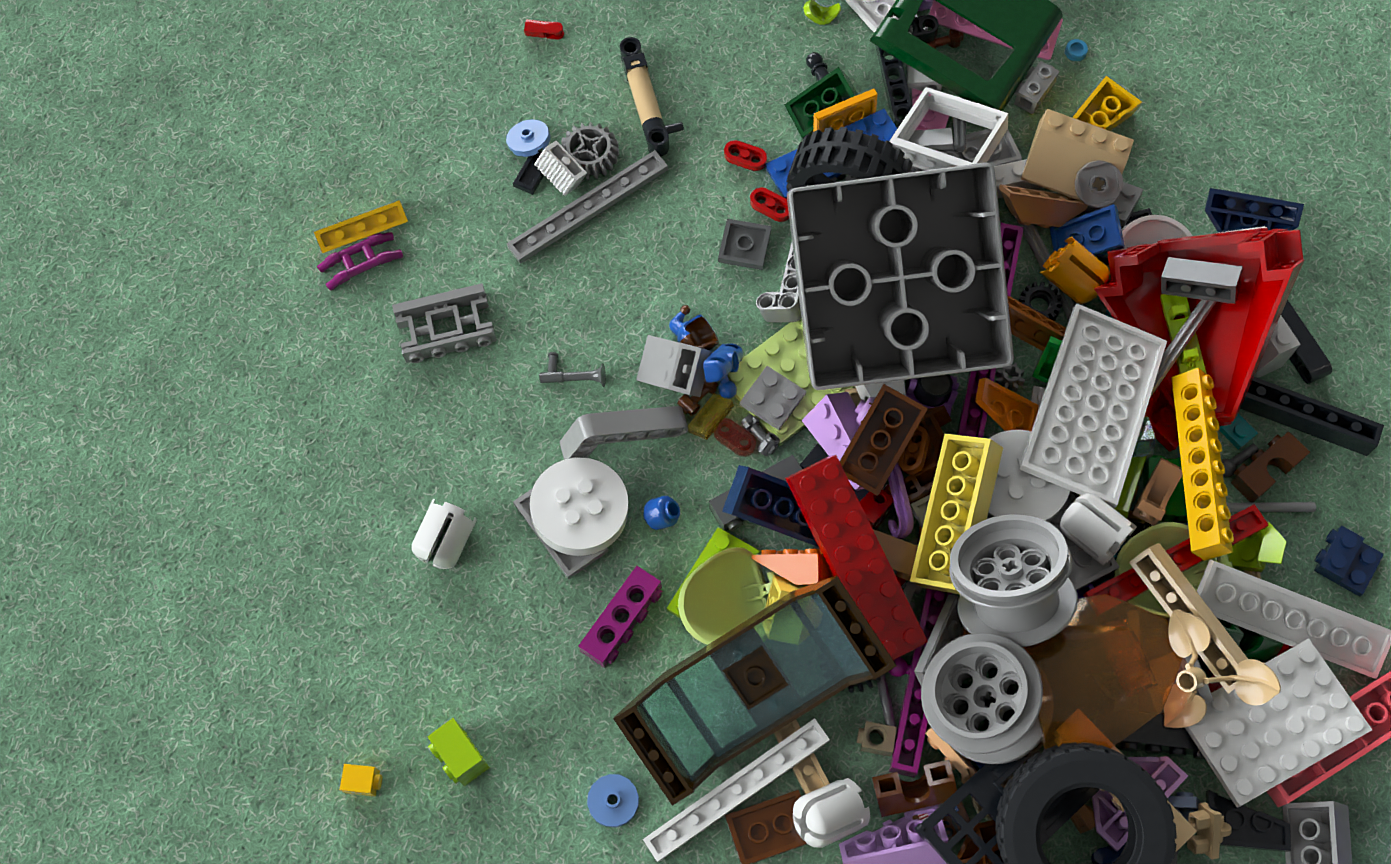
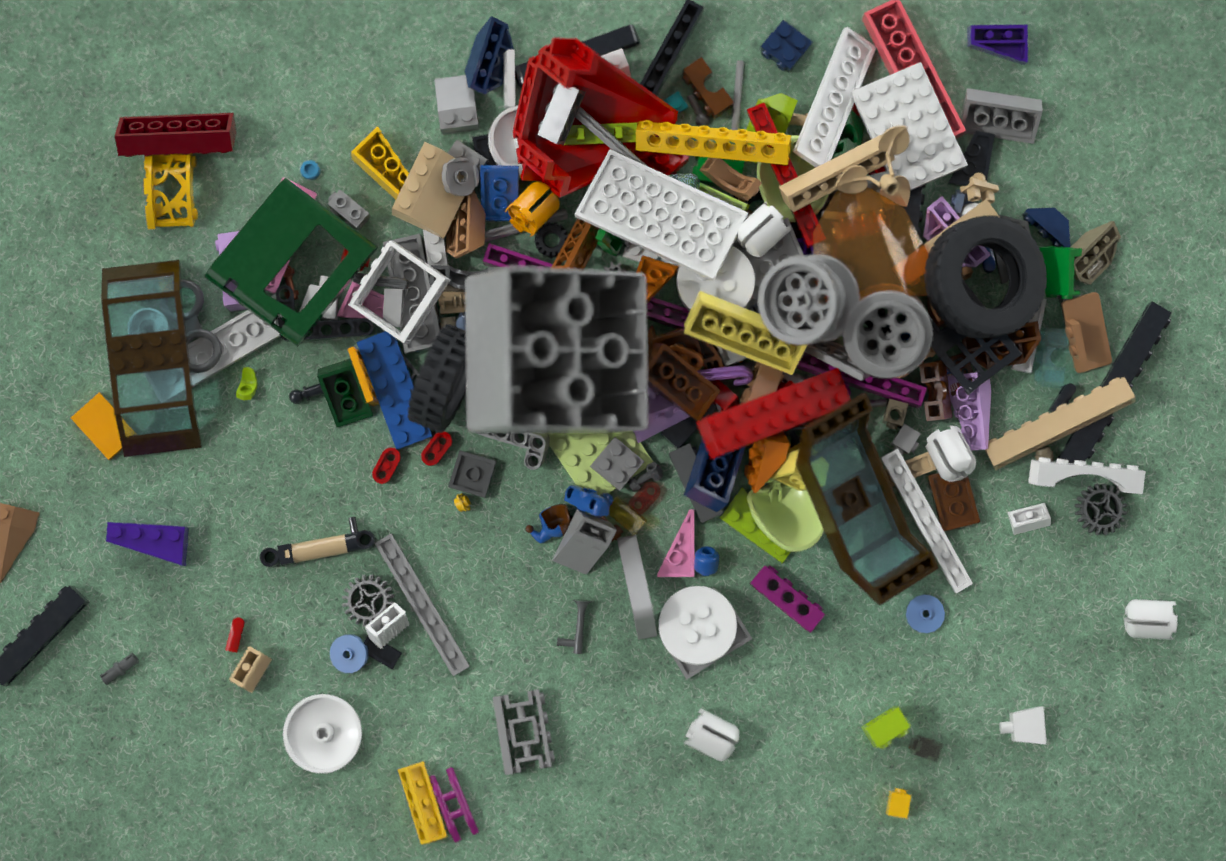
camera: 90 degrees left, 15 degrees up
(431, 807) = (925, 748): none -> clear smoke brick
(437, 118) = (322, 733): none -> white dish
(505, 42) = (250, 669): none -> tan brick
(662, 481) = (680, 557): none -> bright pink wing
(710, 236) = (462, 503): none -> yellow plate
(843, 755) = (905, 440): none -> light grey brick
(1180, 186) = (456, 105): none -> light grey slope

